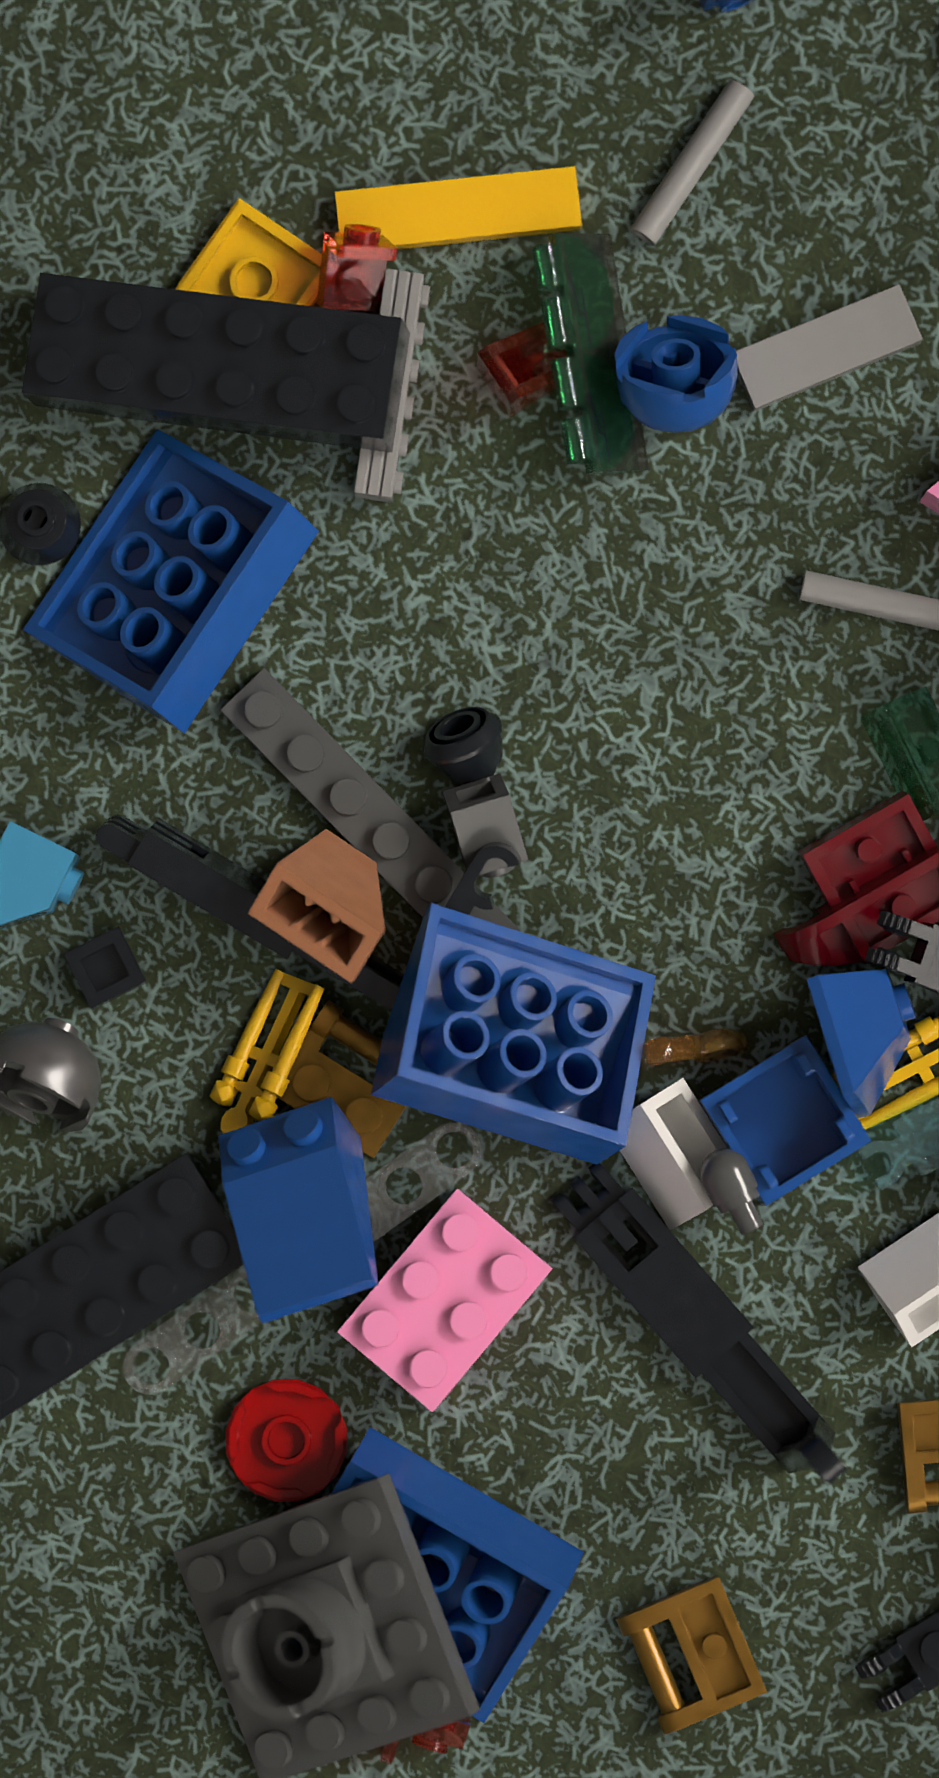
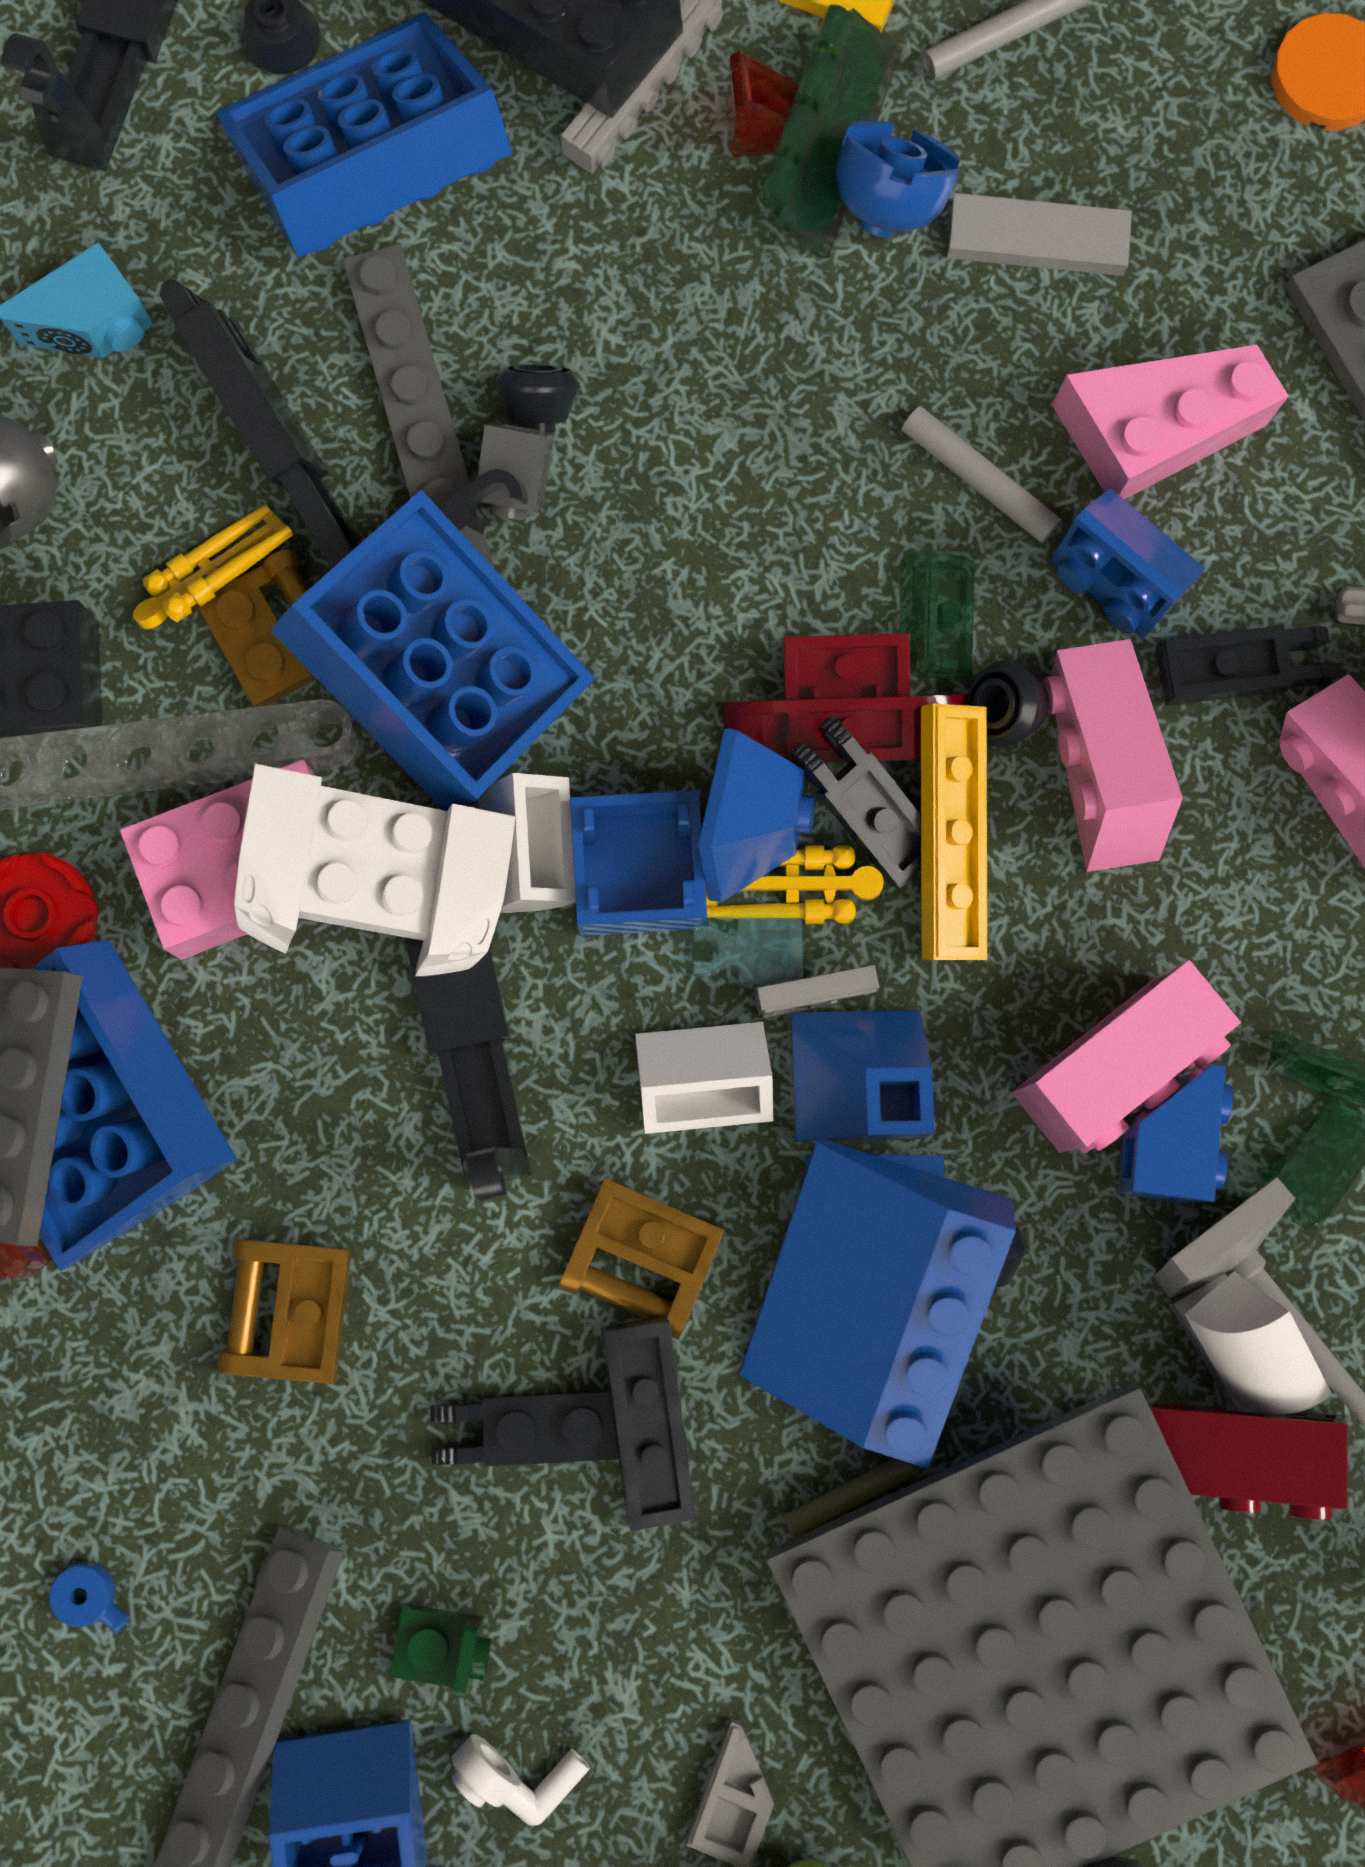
camera: 25 degrees right, 5 degrees down
(105, 968) = (114, 420): black plate -> none
(299, 1208) = (148, 696): blue slope -> none
(325, 903) = (321, 434): nougat slope -> none
(575, 1250) = (371, 868): none -> white piece
(701, 1047) = (605, 764): clear orange piece -> none
(732, 1187) = (554, 890): dark grey cylinder -> none

